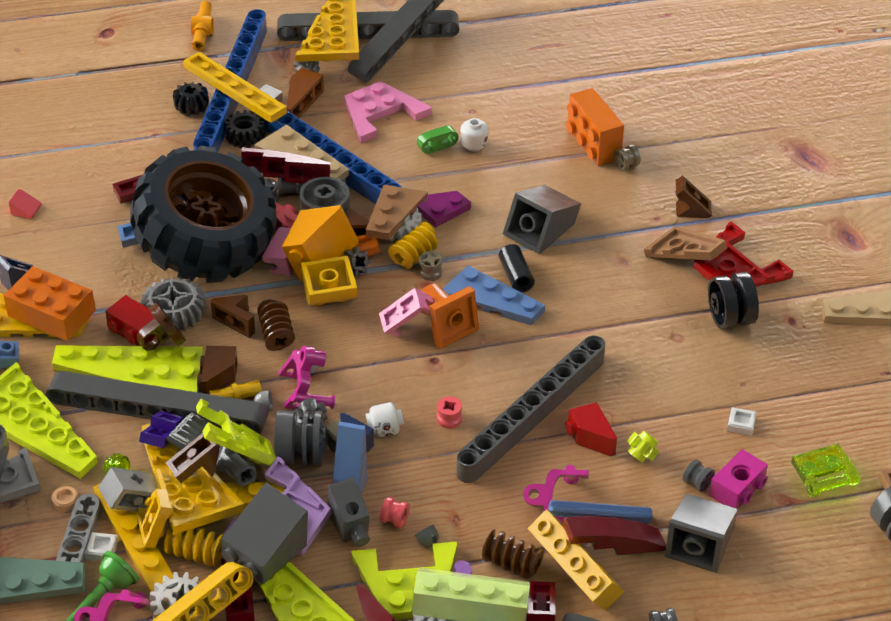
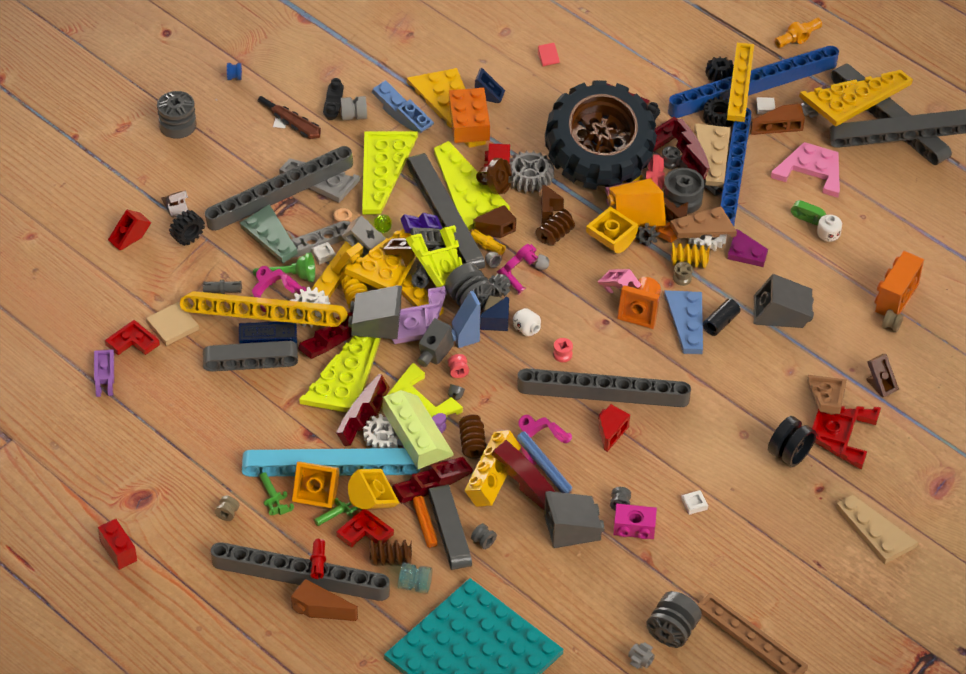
camera: 55 degrees right, 5 degrees up
(643, 446) = (618, 458): neon yellow gear -> none
(825, 462) = (691, 559): clear neon green plate -> none

